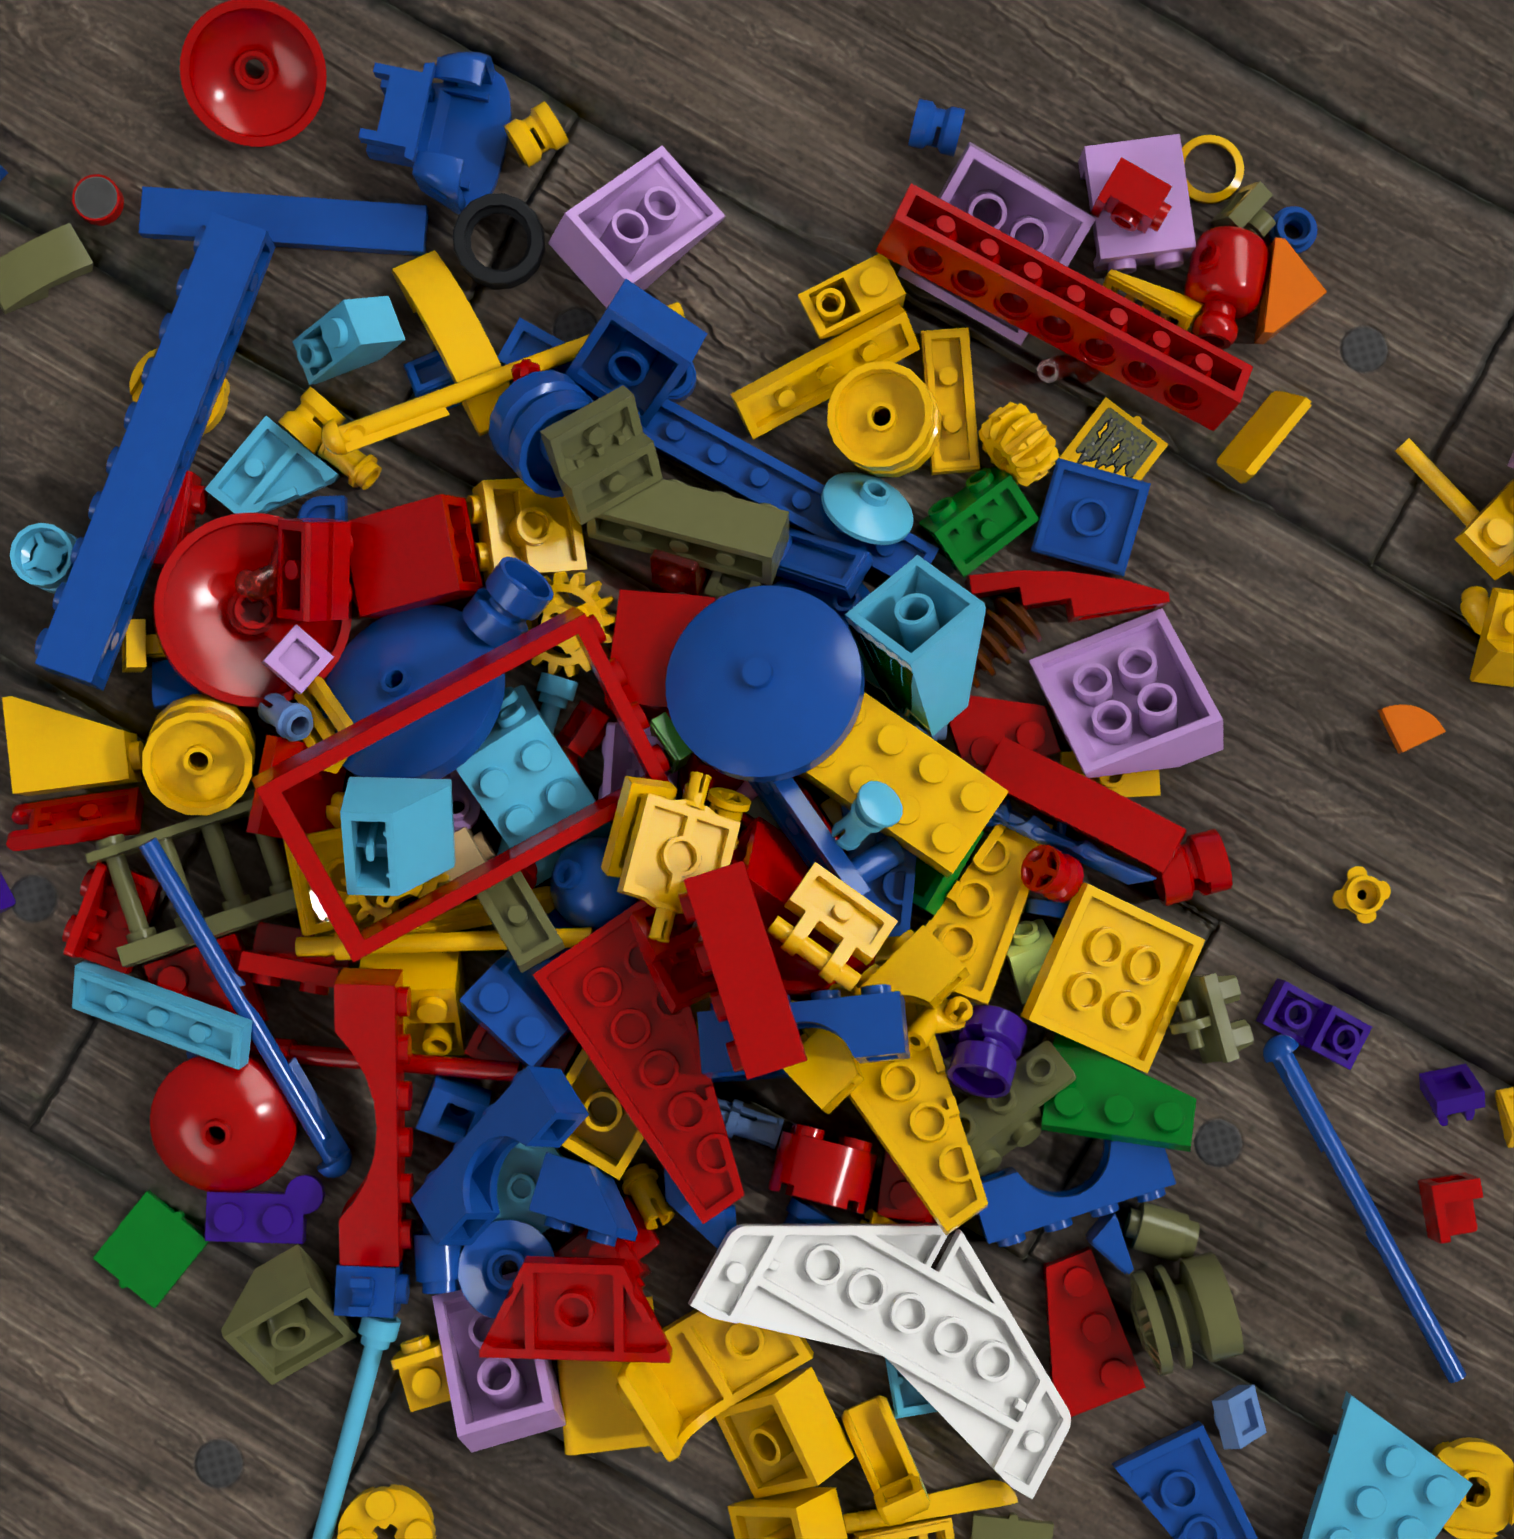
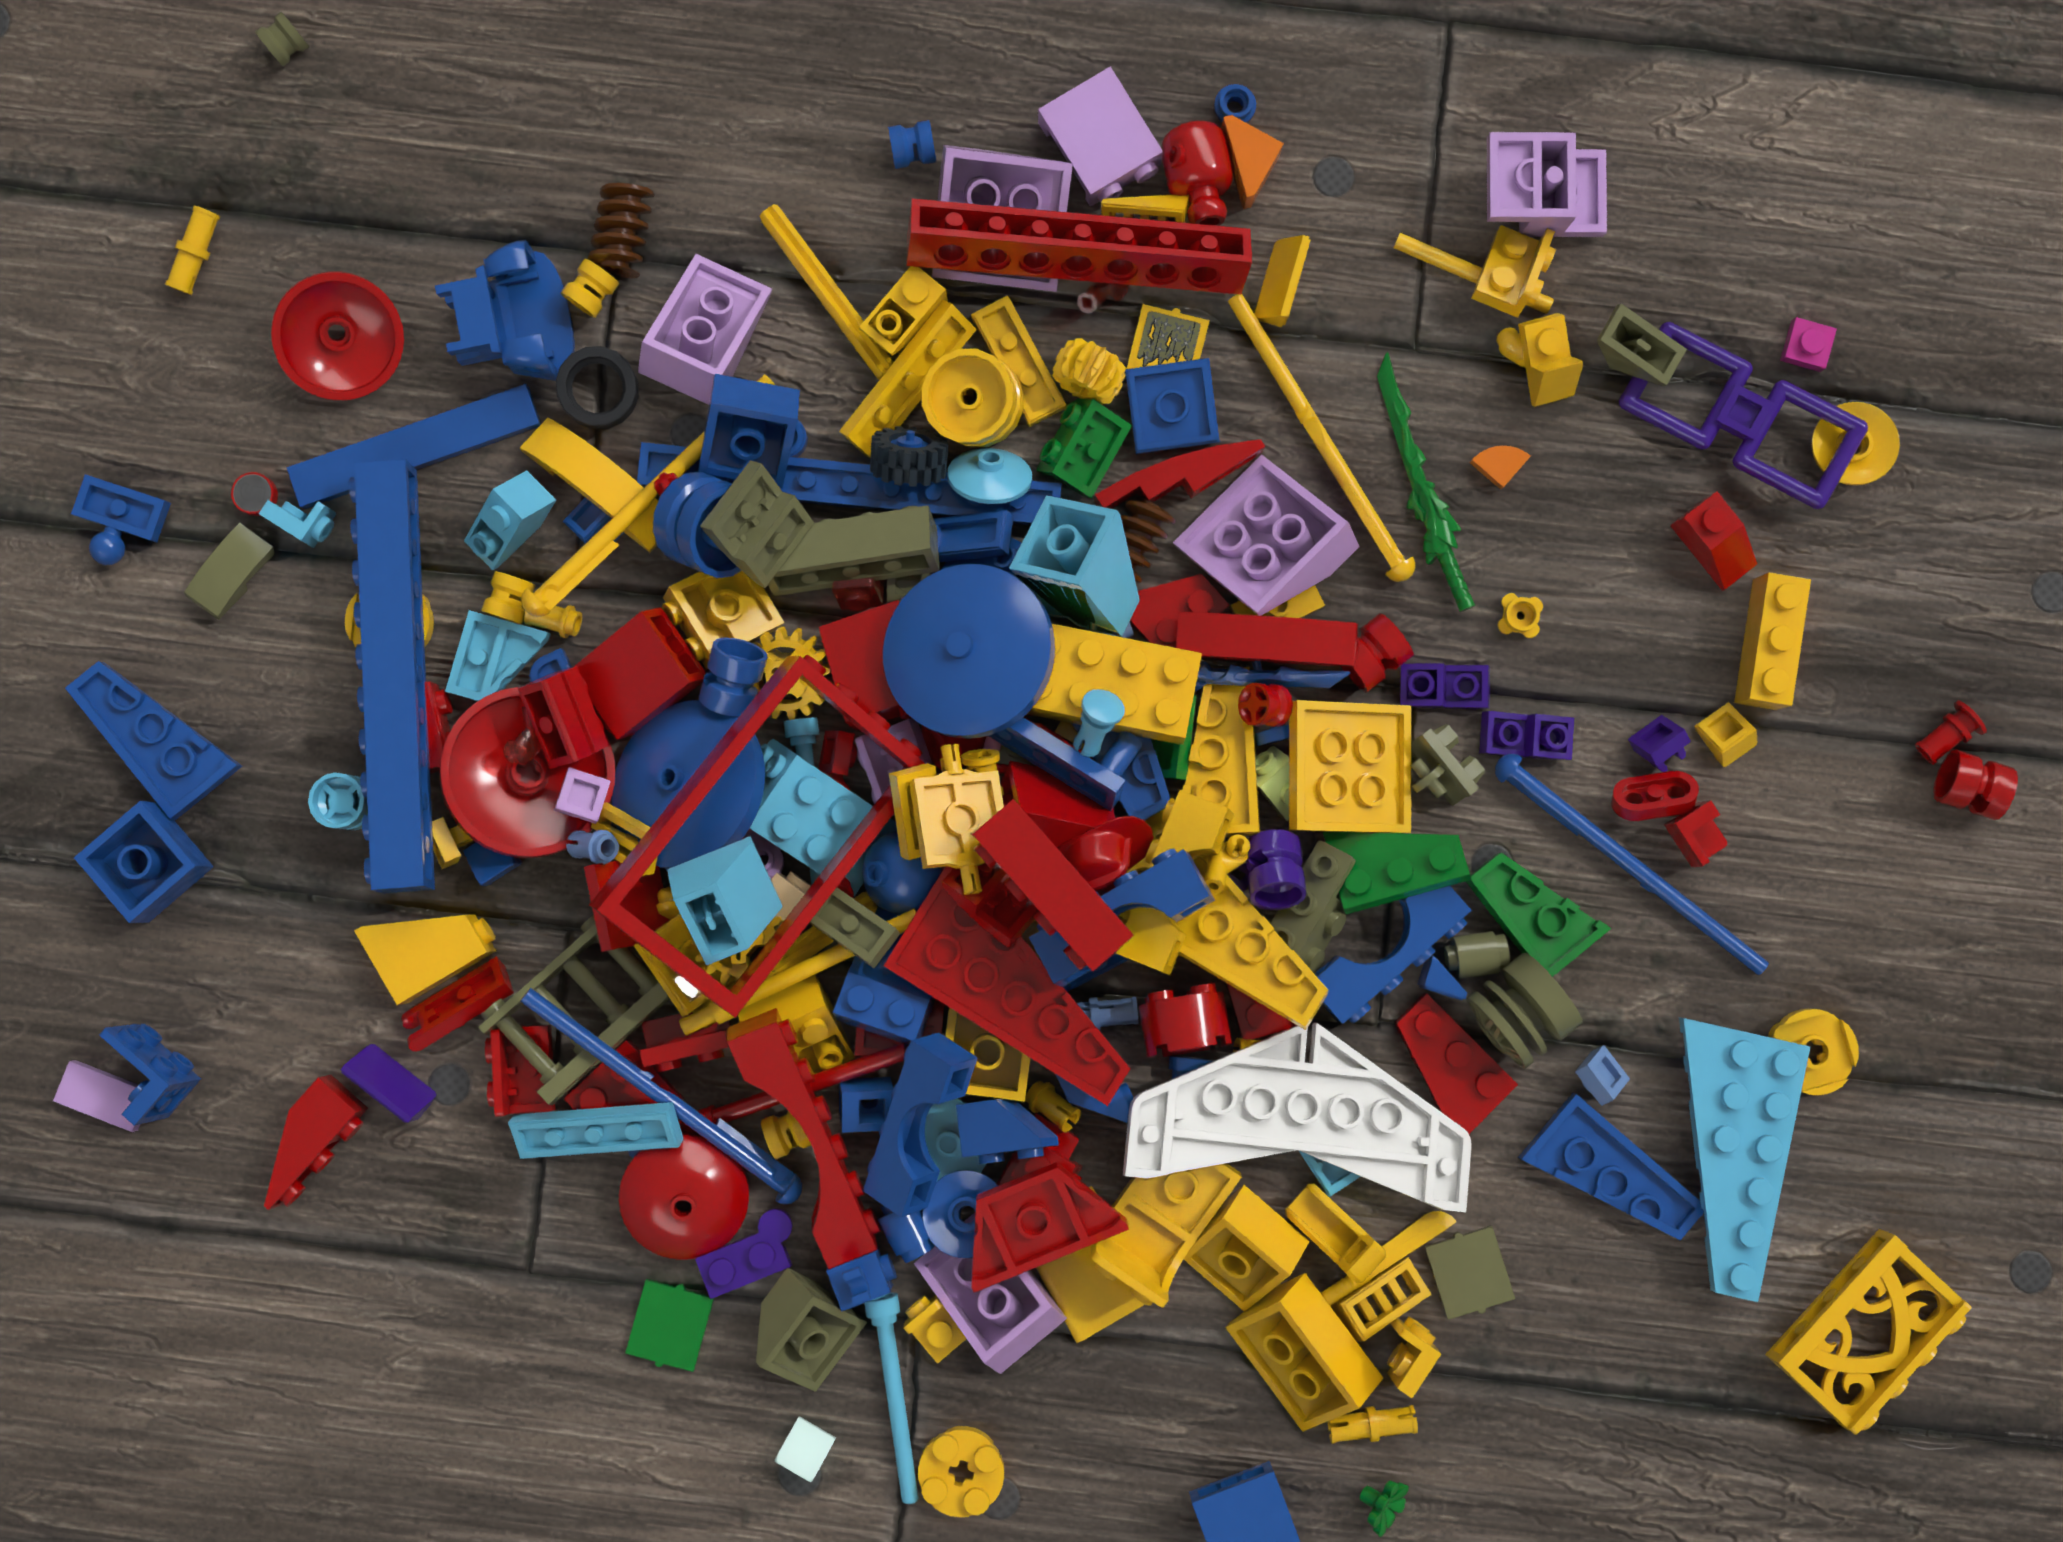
camera: 25 degrees left, 0 degrees up
(135, 257) = (291, 519): none -> medium azure bracket
(191, 780) = (538, 931): yellow wheel -> none
(234, 1441) = (805, 1449): none -> light aqua slope
(352, 1103) = (783, 1134): none -> yellow wheel
(593, 83) = (618, 228): none -> reddish brown piece
(675, 749) = (917, 733): bright green tile -> none
(780, 239) = (825, 289): none -> yellow axle
(791, 451) = (908, 456): none -> black wheel
(841, 916) = (1110, 810): yellow plate -> none
(1133, 198) = (1096, 134): red brick -> none
(1212, 198) = (1166, 101): yellow piece -> none
(1239, 1217) = (1533, 915): none -> green wing
(1245, 210) = (1190, 105): olive tile -> none
(1250, 934) = (1445, 686): none -> dark purple slope
(1257, 791) = (1400, 568): none -> yellow bar
(1312, 728) = (1423, 498): none -> green sword
(1419, 1146) = (1653, 795): none -> red plate

